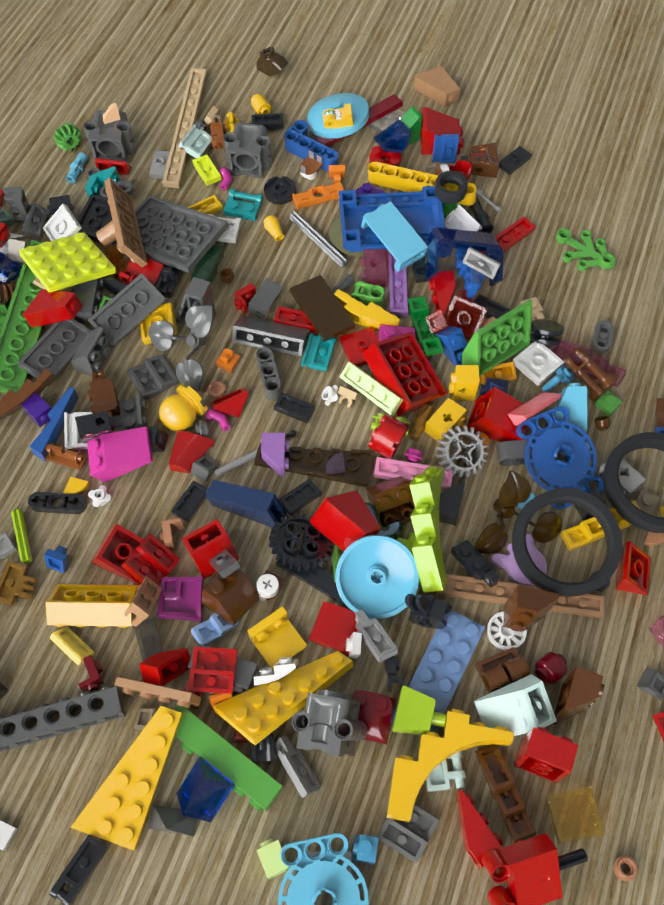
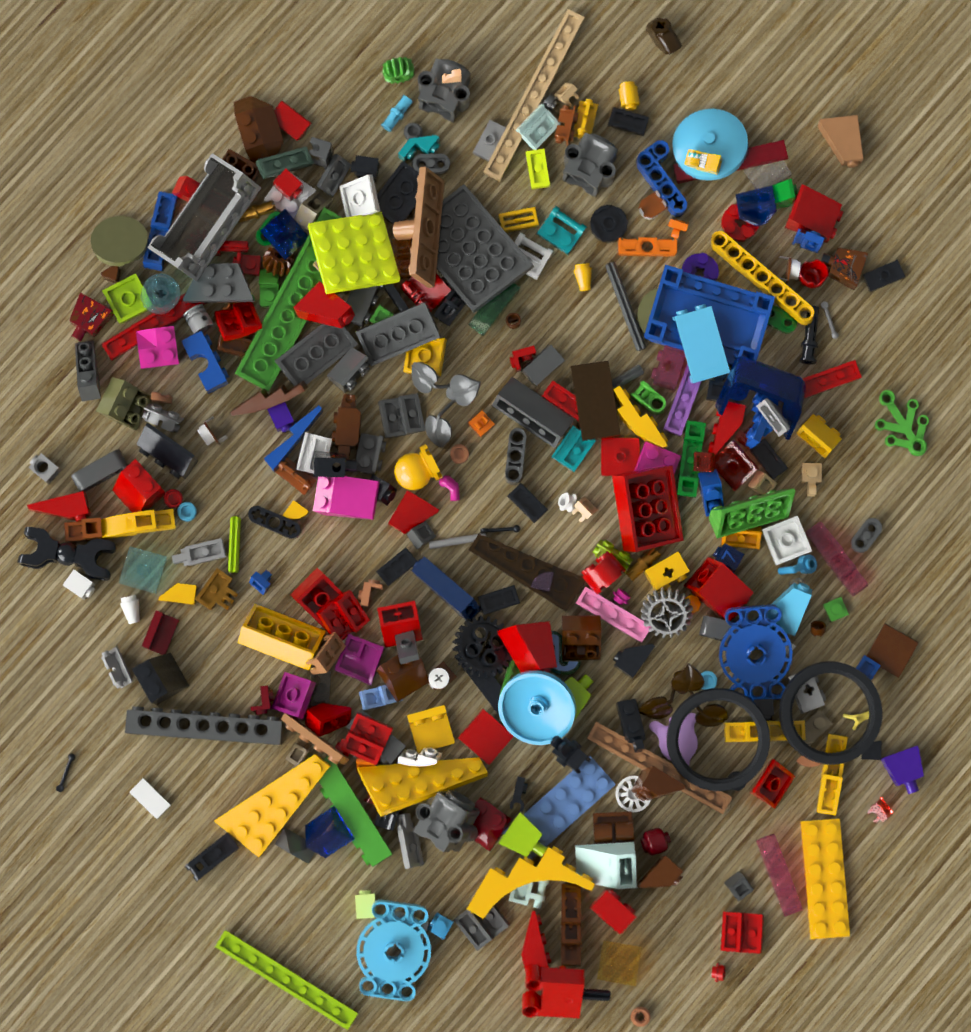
camera: 20 degrees right, 20 degrees up
(71, 645) = (253, 668): light yellow plate -> none
(99, 501) = (315, 535): white plate -> none
(121, 166) = (437, 125): red slope -> none
(122, 656) = (293, 695): none -> magenta plate
(197, 294) = (468, 355): dark grey wedge -> none
(201, 428) = (430, 493): dark grey plate -> none
(227, 178) = (557, 186): dark pink arm -> none
(231, 403) = (468, 473): red slope -> none
(273, 451) = (490, 548): medium lavender slope -> none
(353, 645) = (493, 760): white plate -> none
(371, 388) = (607, 512): yellowish green tile -> none
(375, 637) = (514, 760): light grey hinge -> none
(425, 520) = (597, 677): lime arch -> none
(451, 197) = (791, 295): black tyre -> none
(461, 220) = (783, 346): white plate -> none
(464, 382) = (700, 541): yellow brick -> none
(523, 277) = (819, 435): none -> yellow slope
(533, 407) = (753, 594): coral slope -> none
(546, 332) = (808, 512): black head -> none
(595, 389) = (838, 590): reddish brown piece -> none

